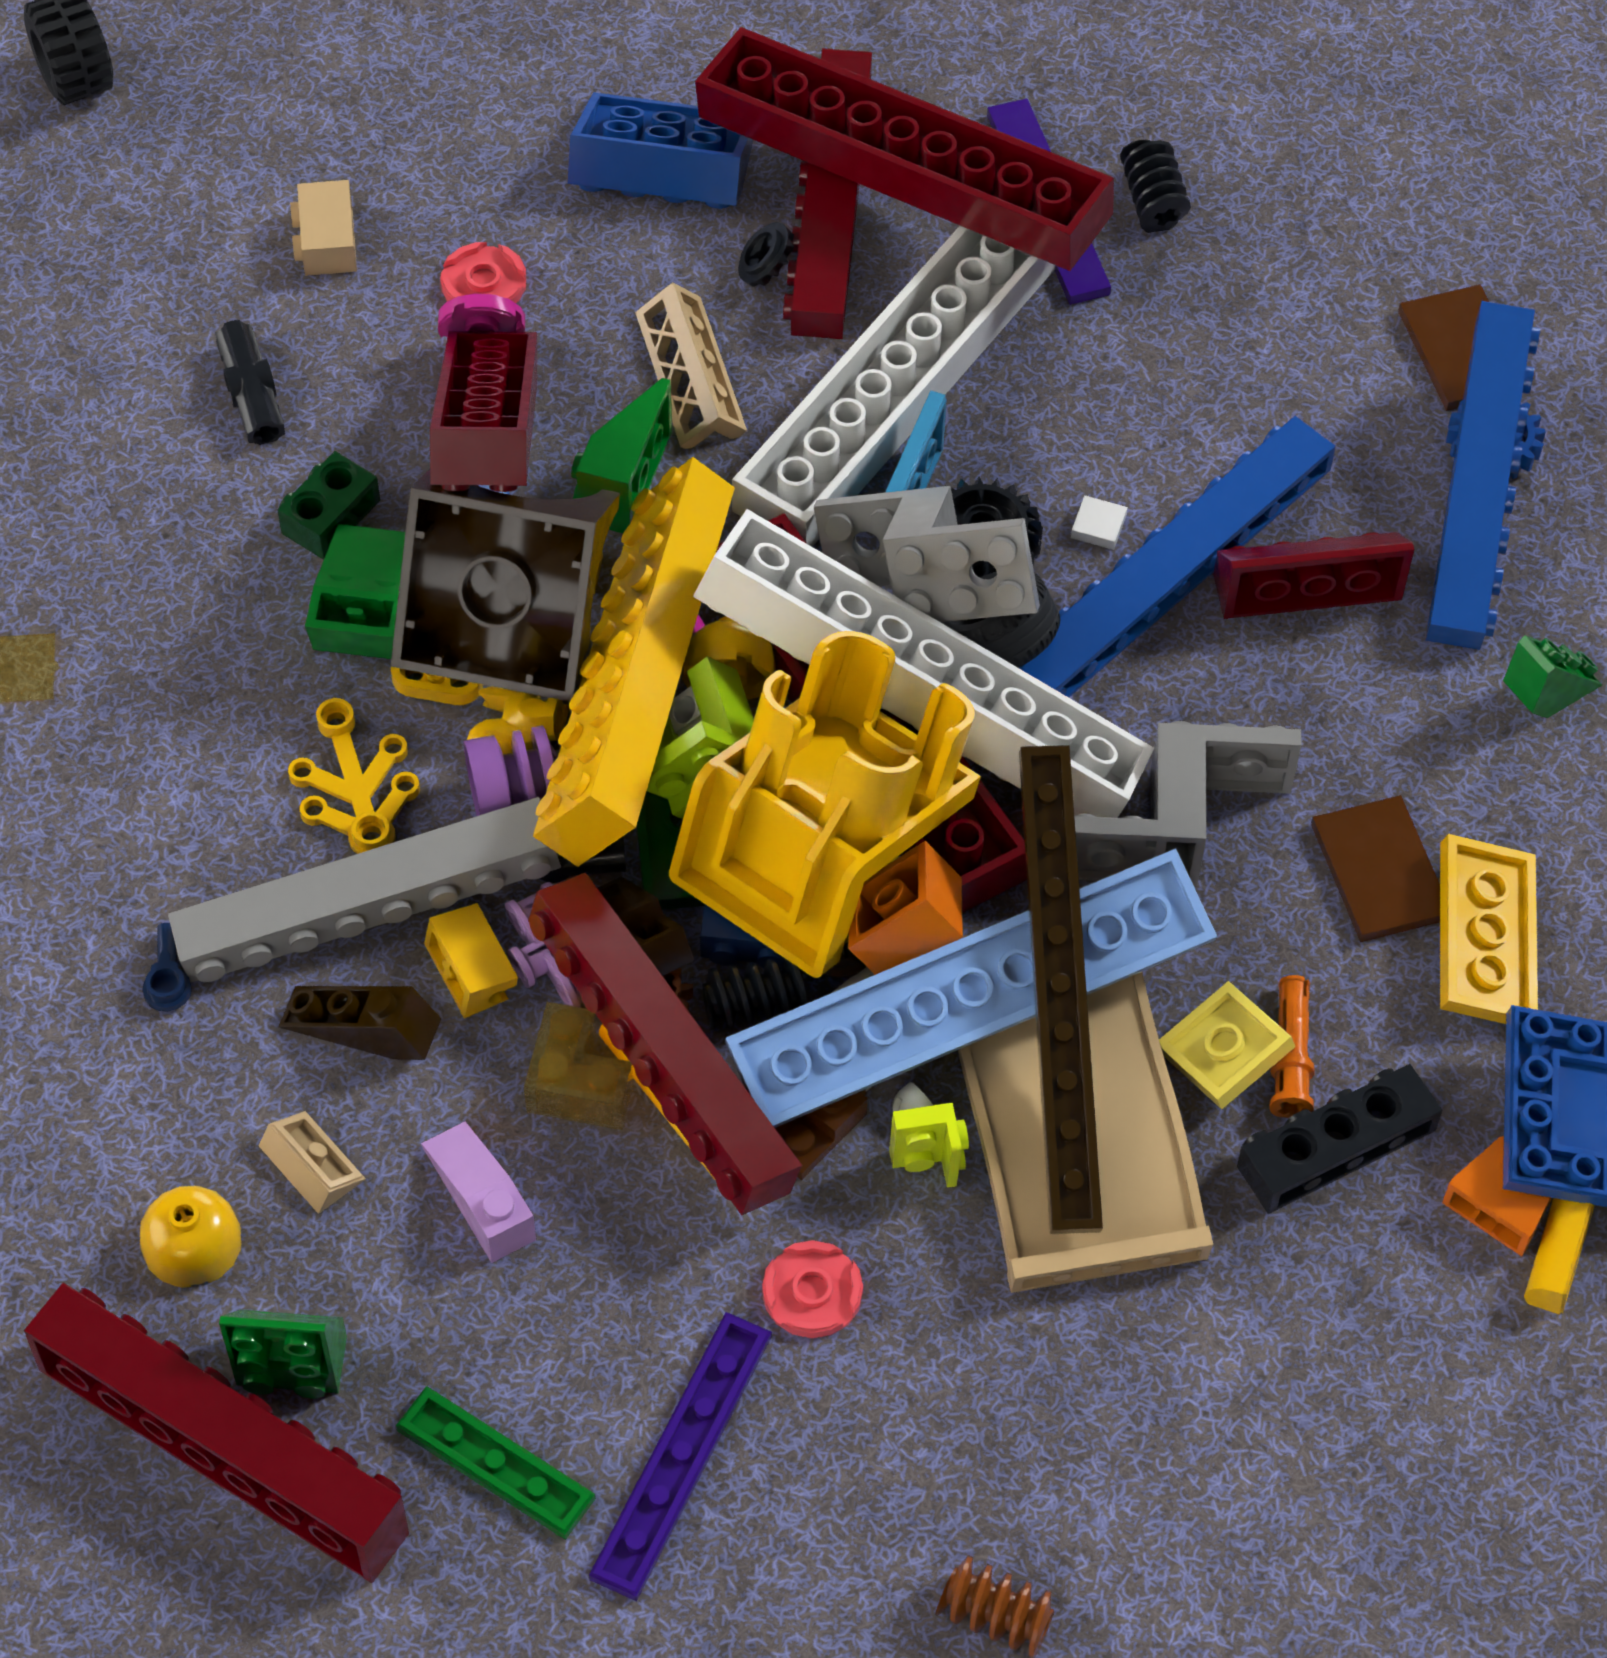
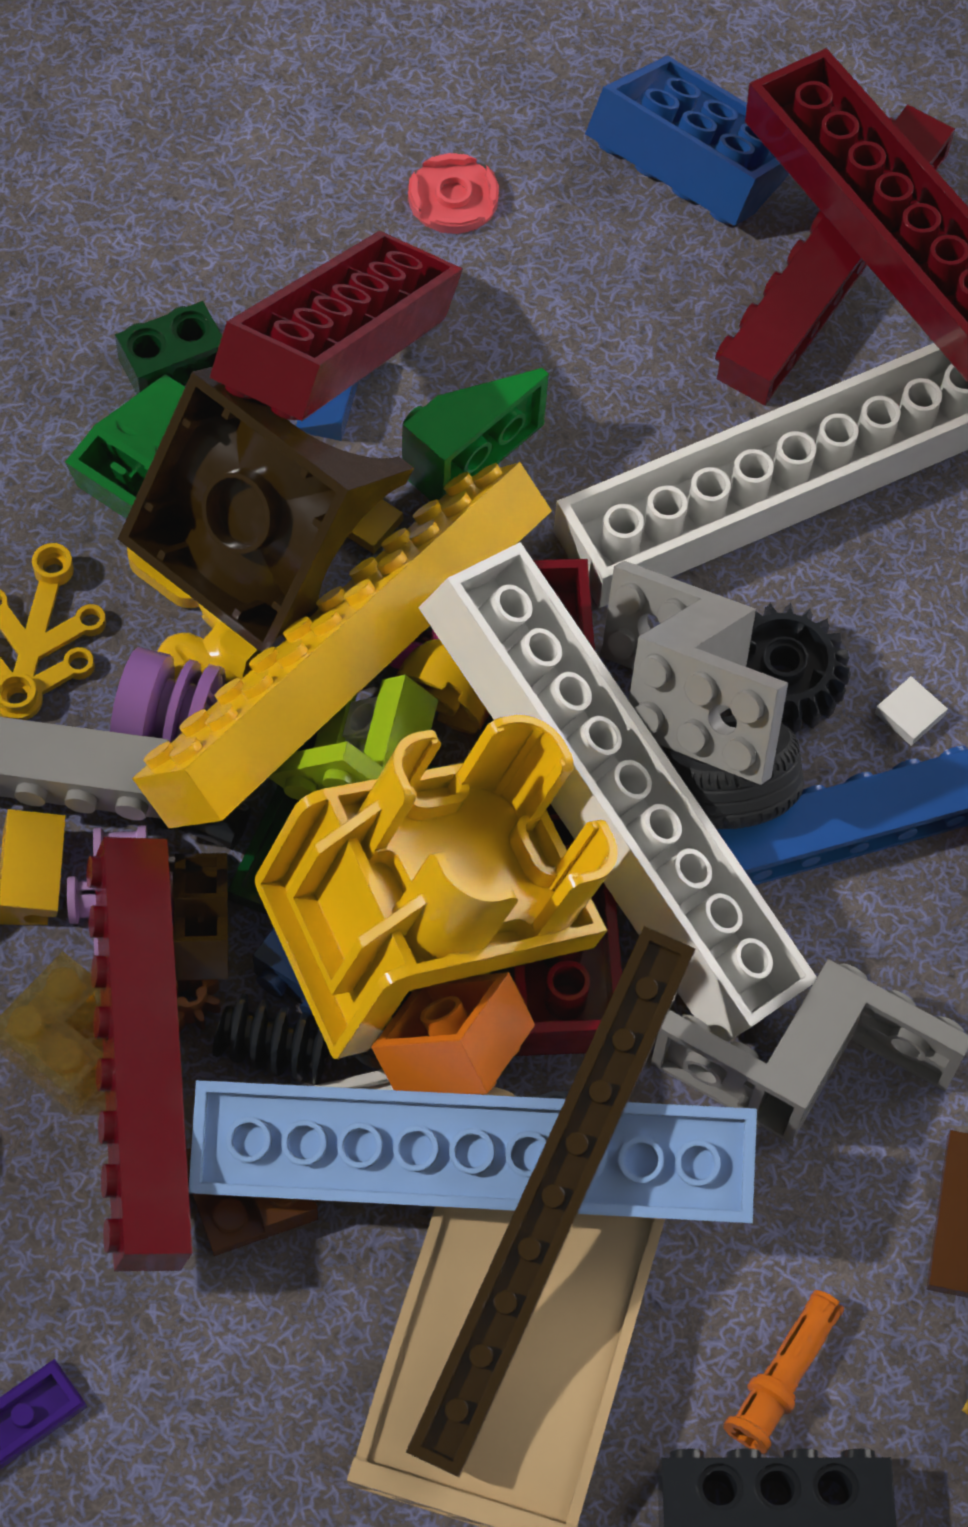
camera: 25 degrees right, 5 degrees up
(250, 382) = (172, 199): black piece -> none
(325, 227) = (332, 79): tan brick -> none
(480, 313) = (416, 228): dark pink tile -> none
(695, 356) = (607, 364): tan fence -> none
(765, 254) = (733, 287): black gear -> none
(809, 1306) = (154, 1399): coral tile -> none
(910, 1097) = (361, 1235): white hinge -> none
(922, 448) = (761, 558): dark azure tile -> none
(927, 1137) = (347, 1281): neon yellow bracket -> none
(1225, 1044) = (713, 1335): light yellow plate -> none

